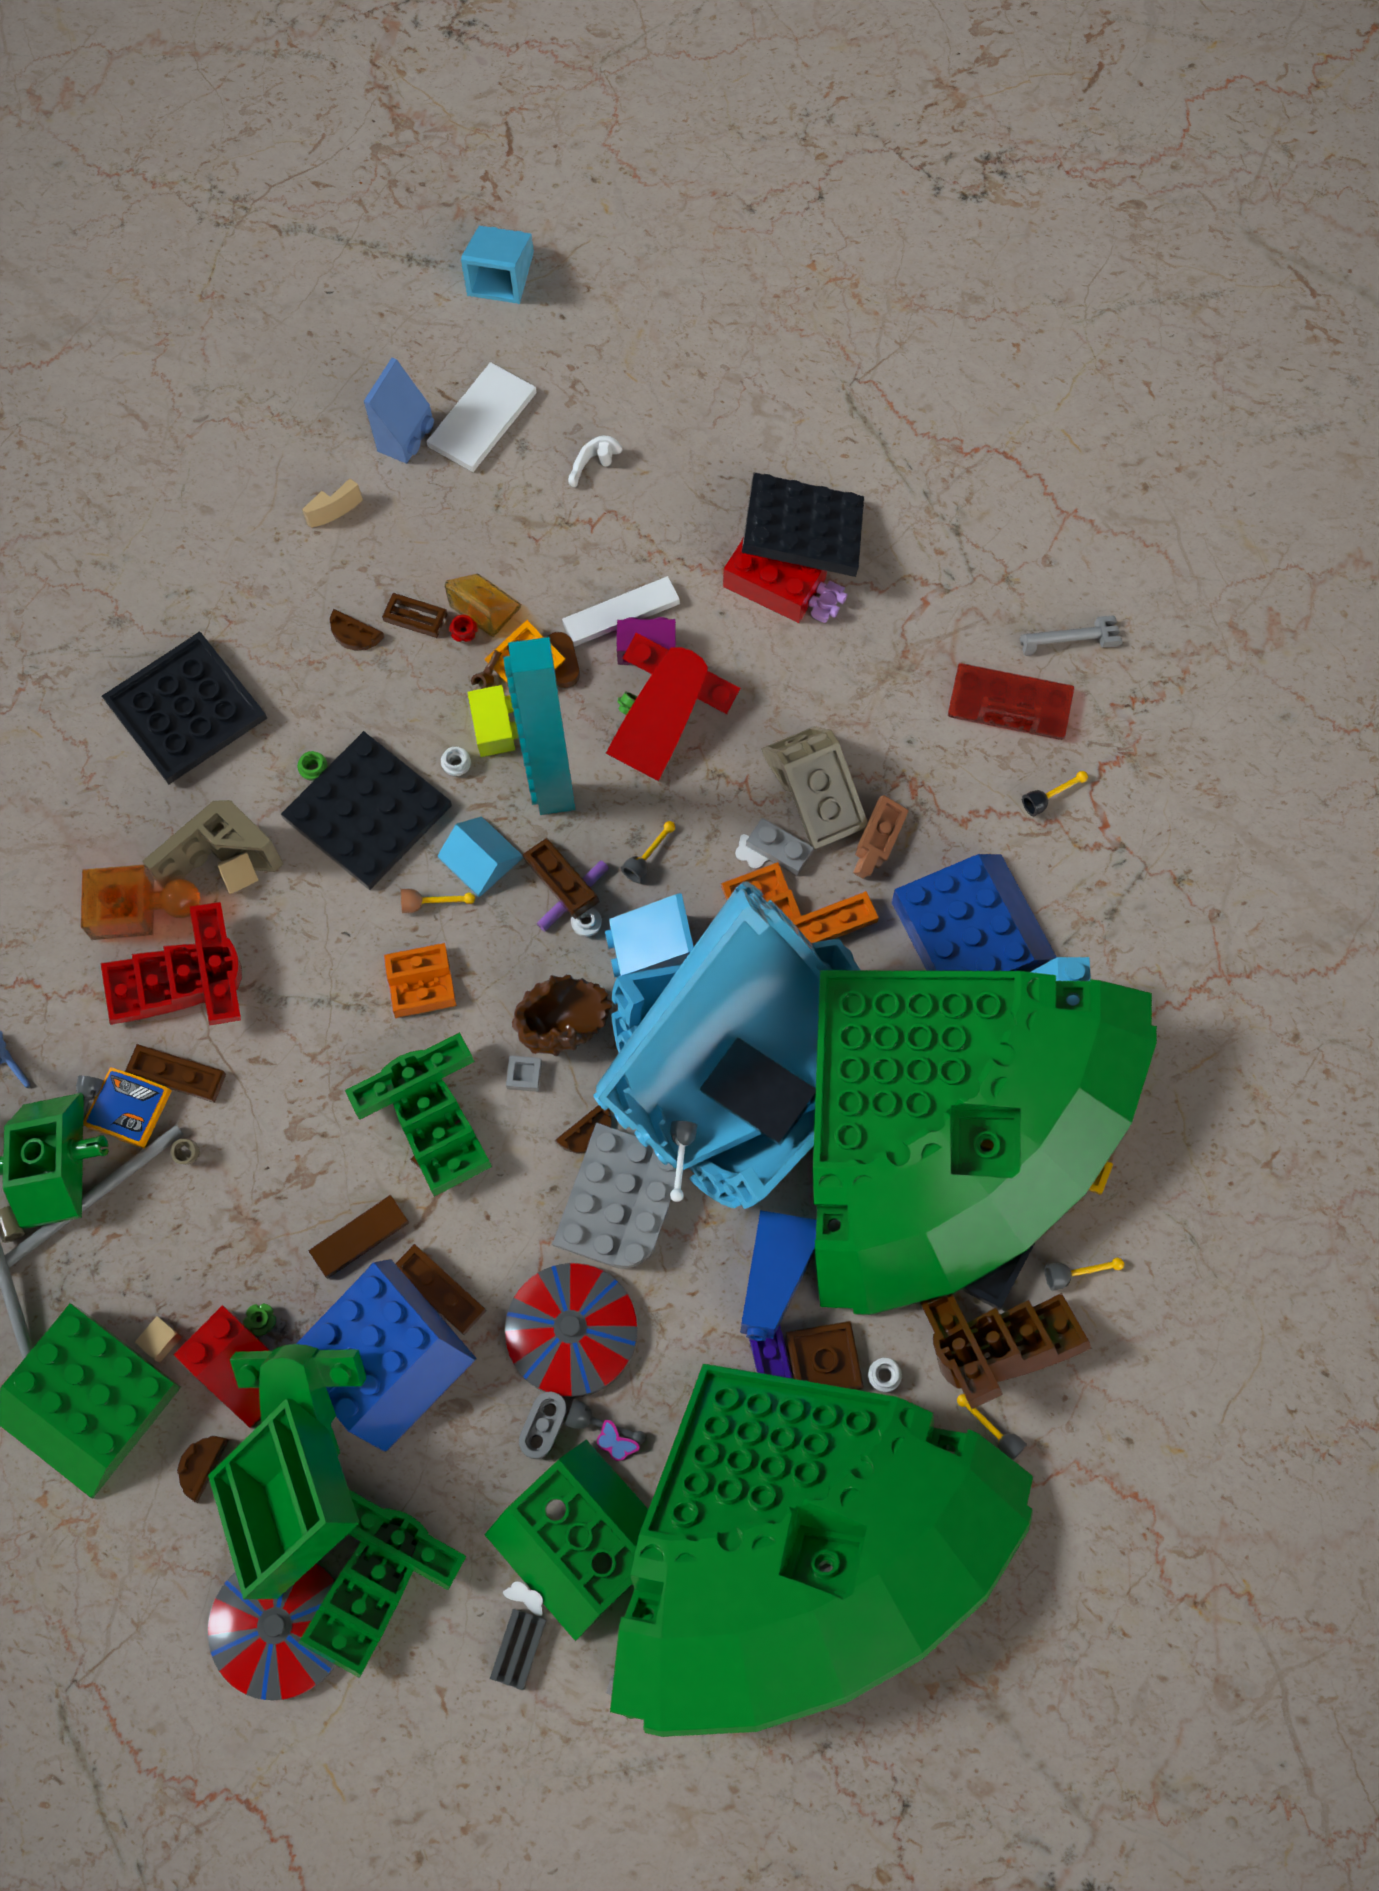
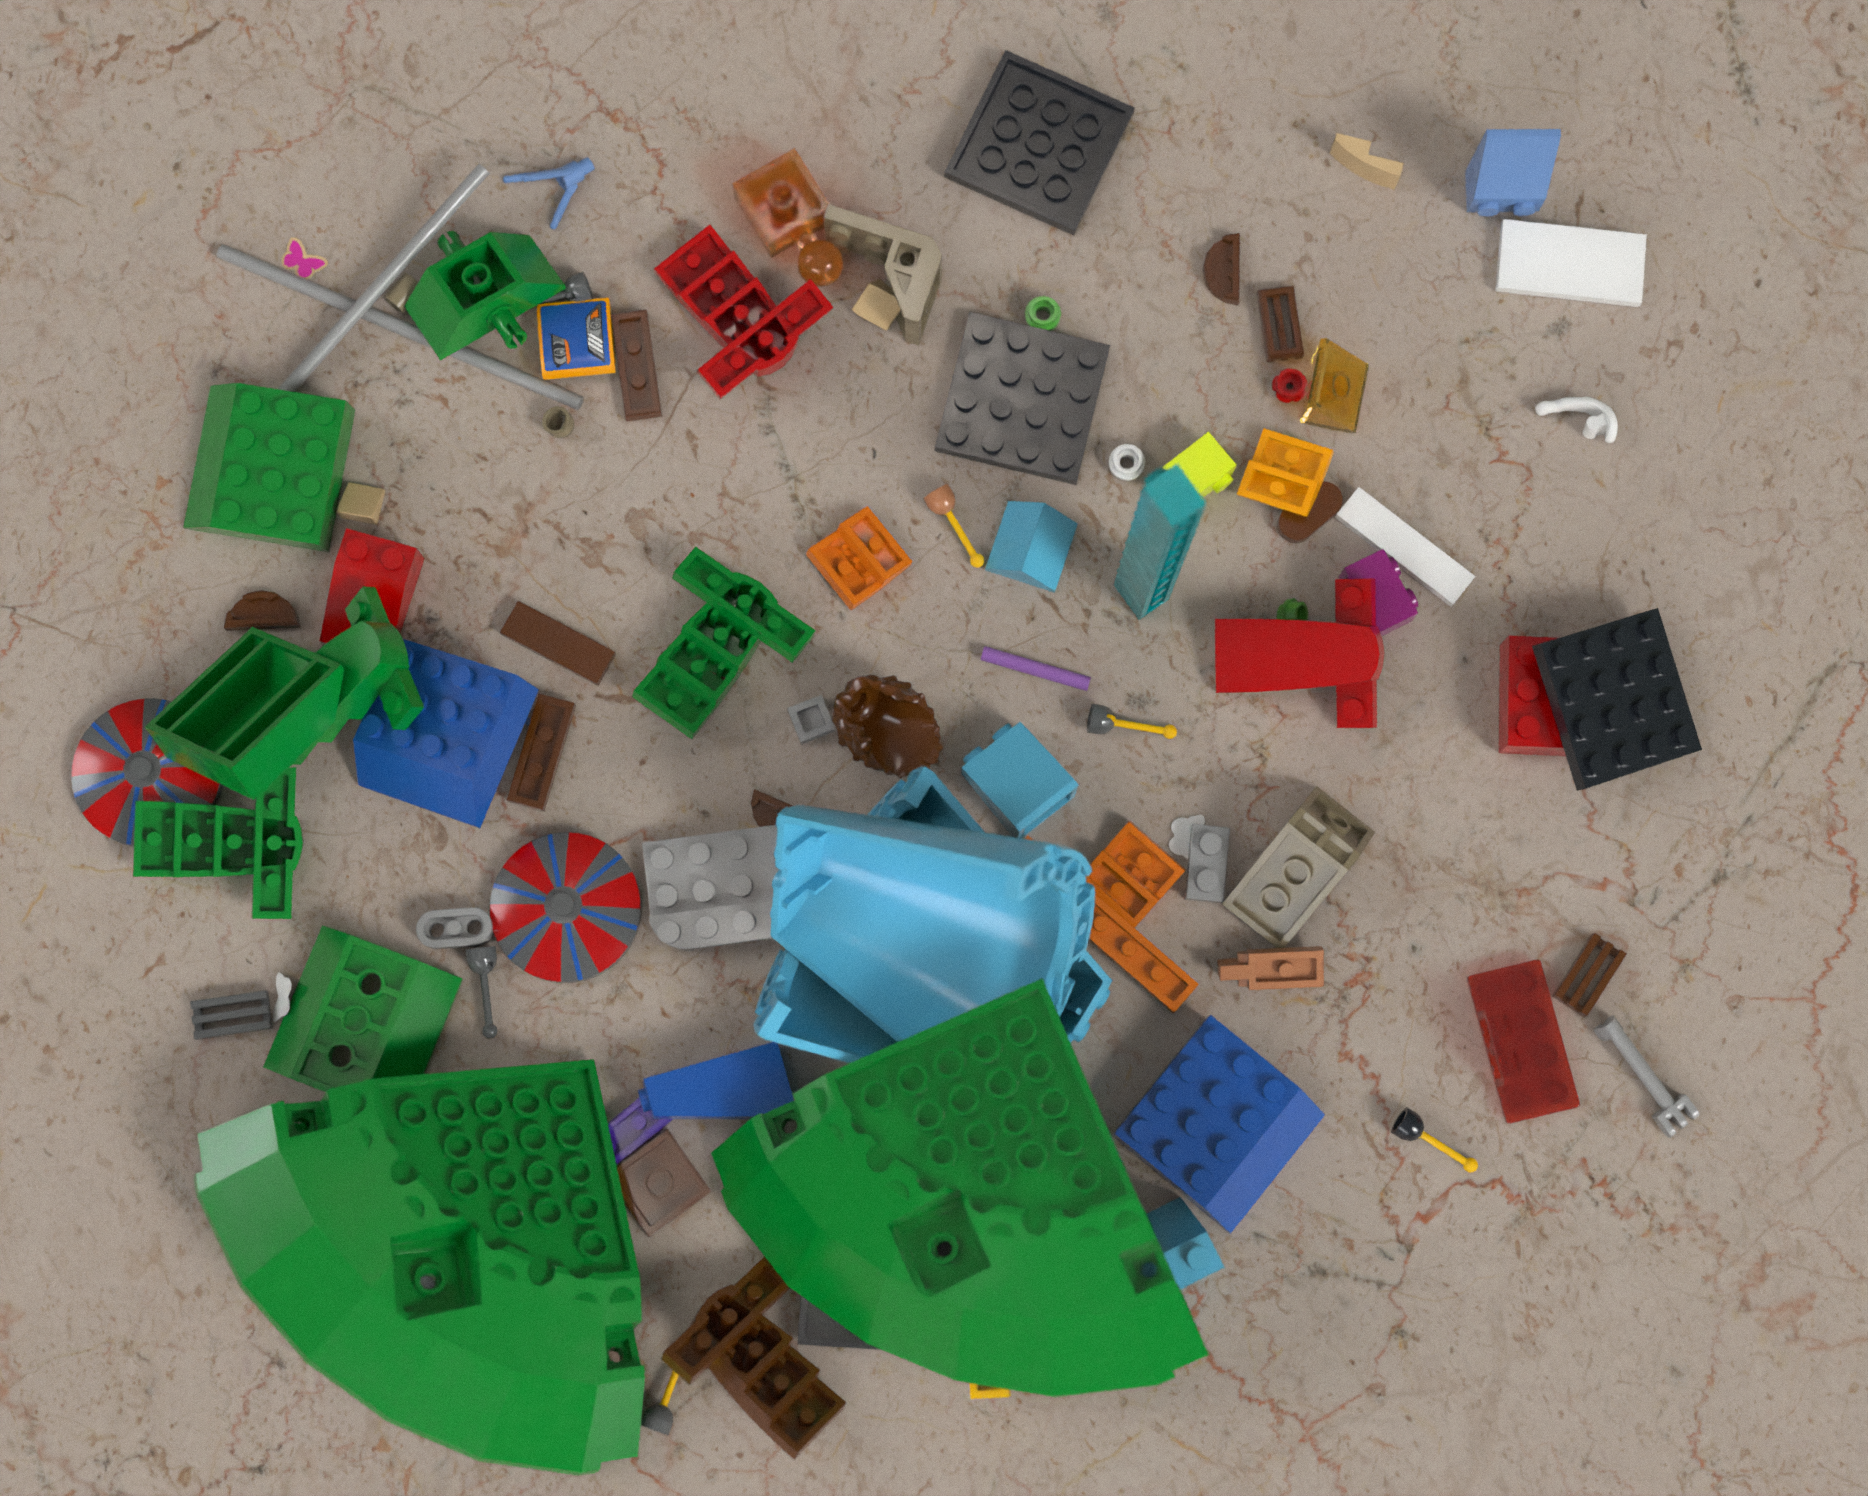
camera: 60 degrees right, 10 degrees up
(268, 1319) = (430, 600): bright green plate -> none
(486, 675) = (1246, 440): reddish brown hand -> none
(497, 264) = (1783, 172): medium azure slope -> none
(561, 878) = (1046, 645): reddish brown tile -> none
(590, 929) = (1009, 709): white plate -> none
(617, 1446) = (470, 1015): medium blue sticker -> none
(682, 1134) = (806, 921): hinge -> none
(758, 1091) = (890, 976): black tile -> none
(826, 604) = (1536, 773): lavender piece -> none
(884, 1364) = (659, 1253): white plate -> none
(972, 619) = (1606, 948): none -> reddish brown tile
(1059, 1275) = (866, 1393): hinge -> none

